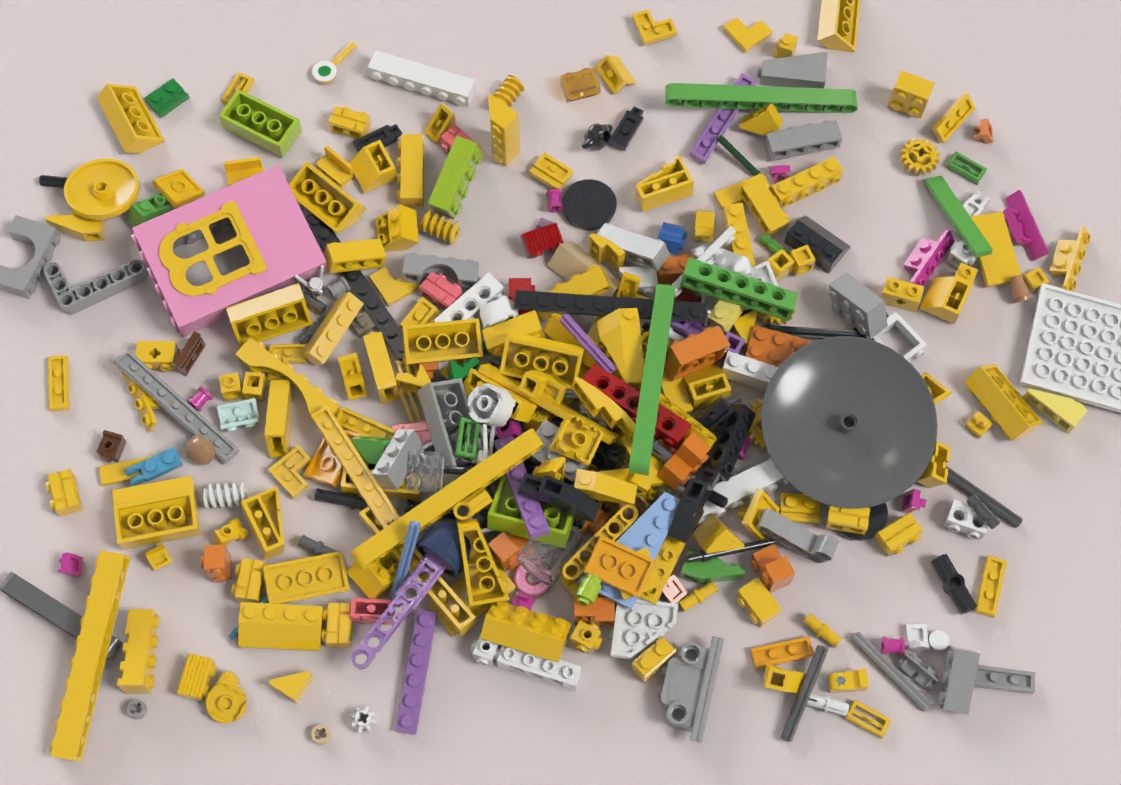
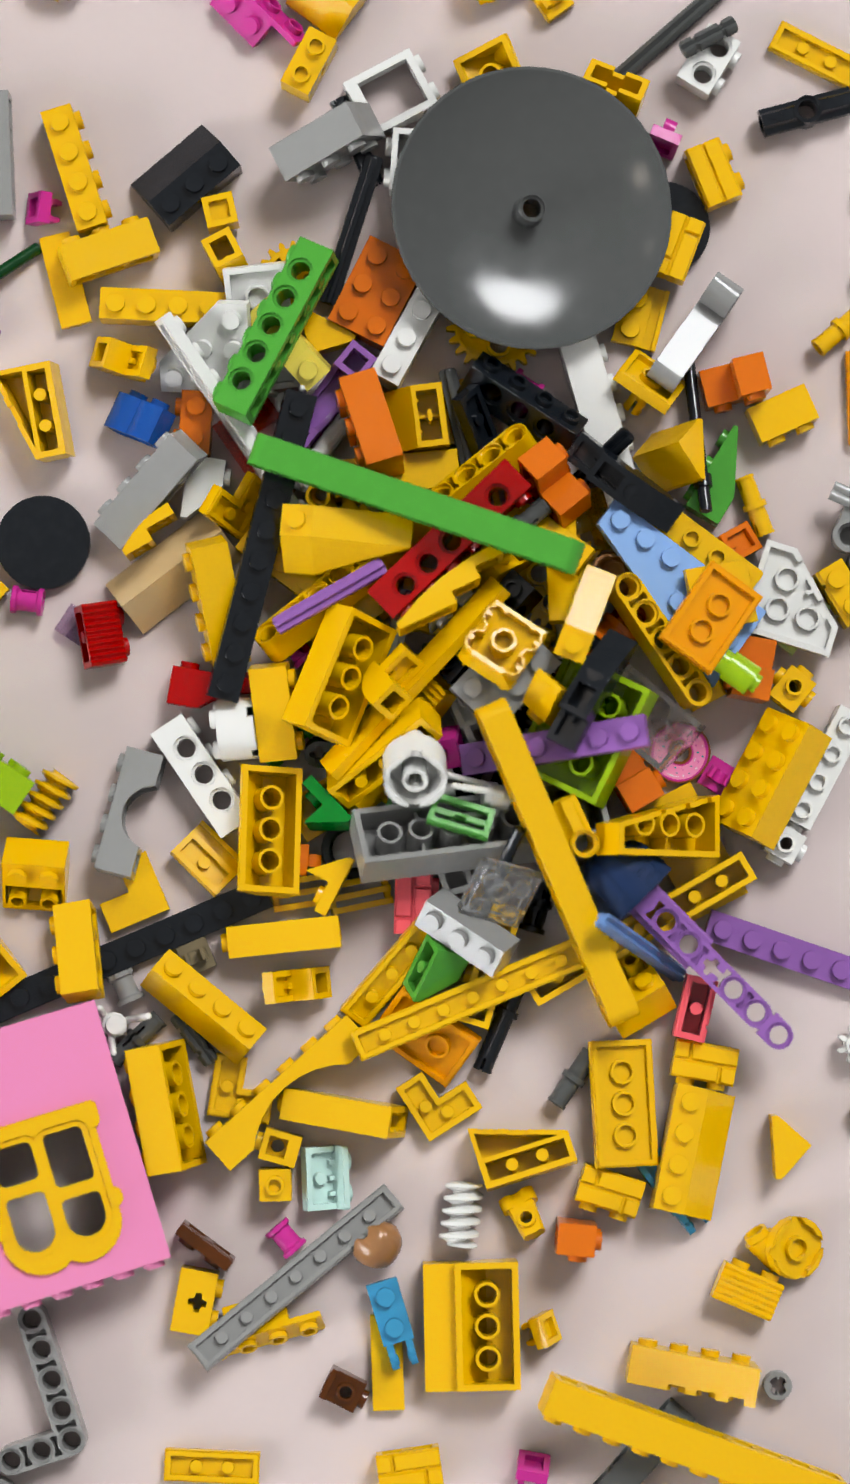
camera: 85 degrees left, 20 degrees up
(440, 291) = (165, 818): coral brick -> none
(771, 245) = (181, 250): bright green axle -> none

